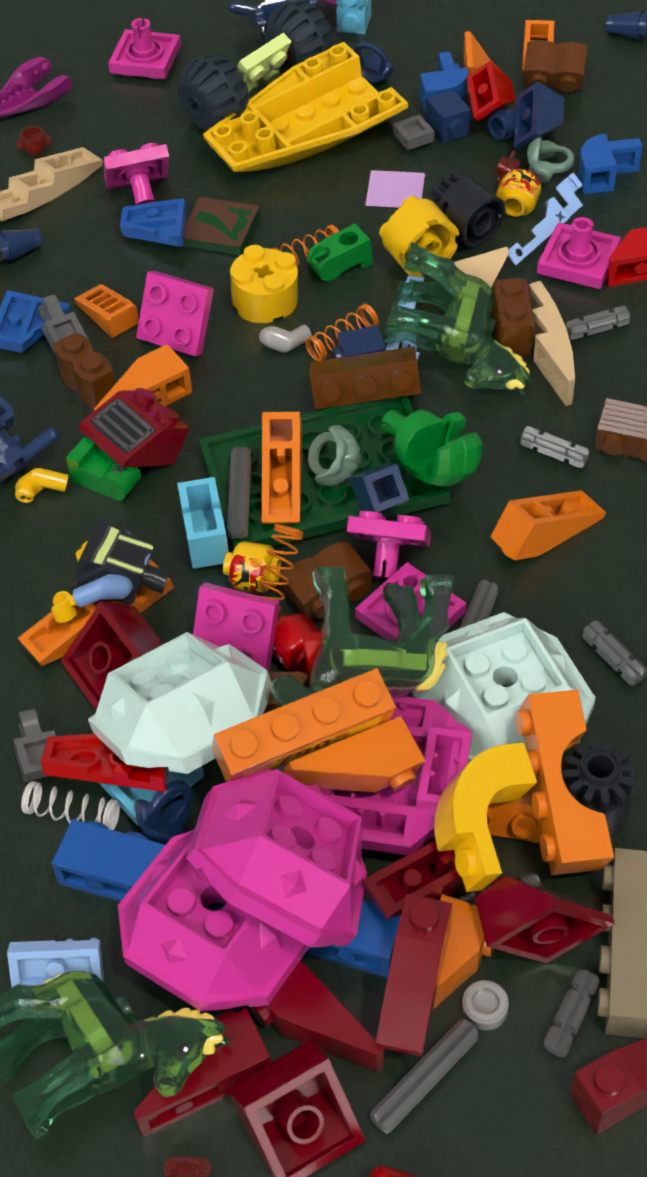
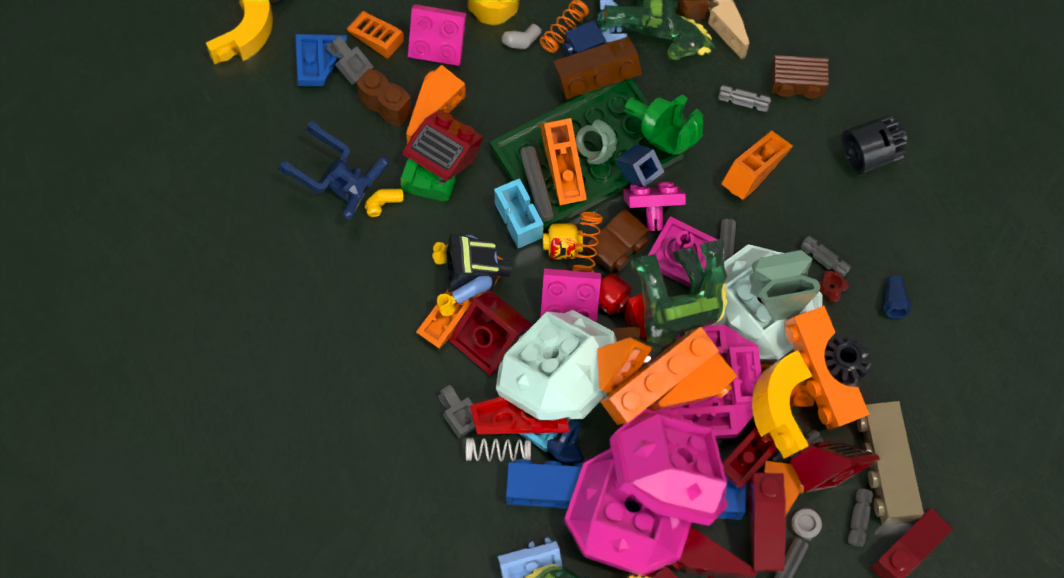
camera: 20 degrees left, 15 degrees up
(256, 695) = (620, 362): none -> orange slope
(523, 645) = (784, 283): none -> sand green piece
(615, 681) = (839, 283): none -> clear red plate

